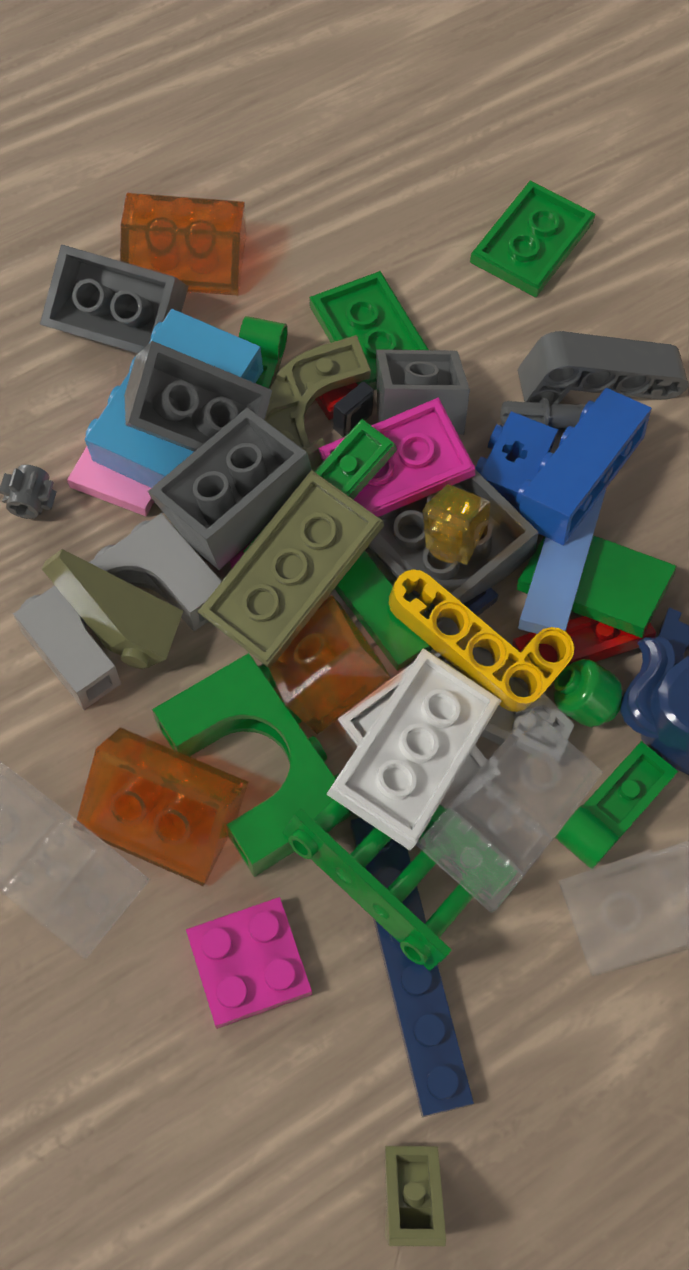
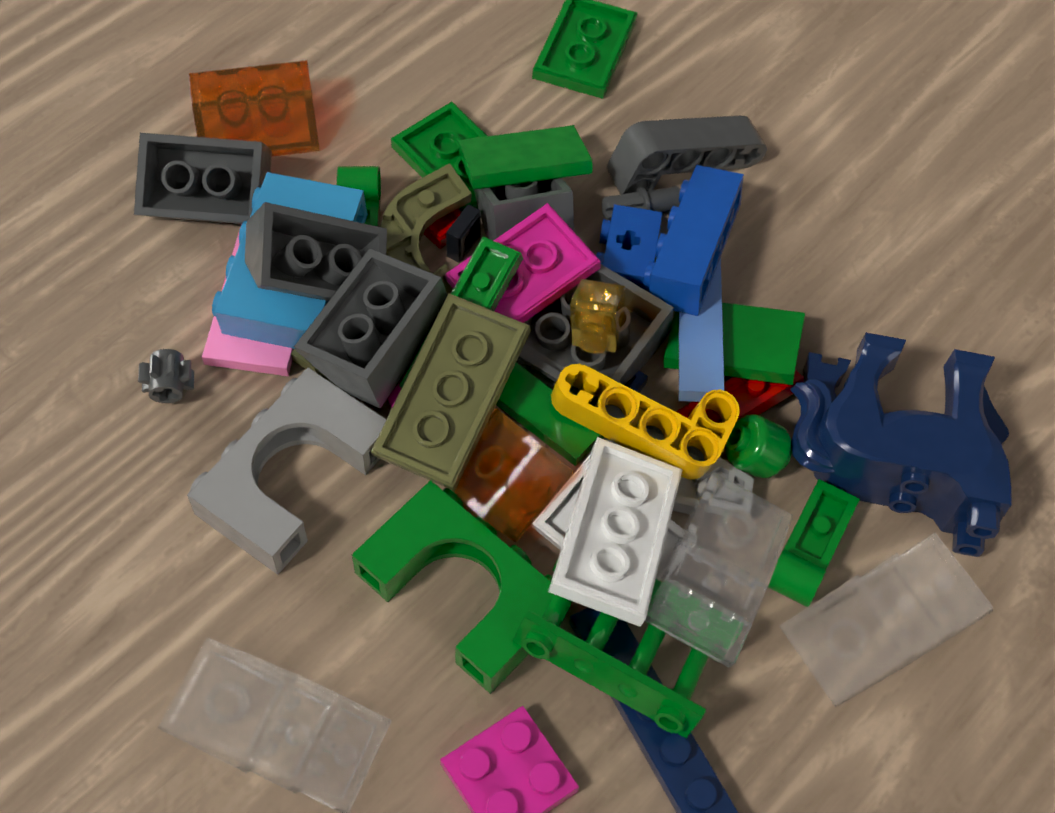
camera: 15 degrees left, 5 degrees down
(117, 612) = (290, 469): olive slope -> none
(160, 804) = (382, 645): clear orange slope -> none
(434, 343) = (525, 157): none -> green tile

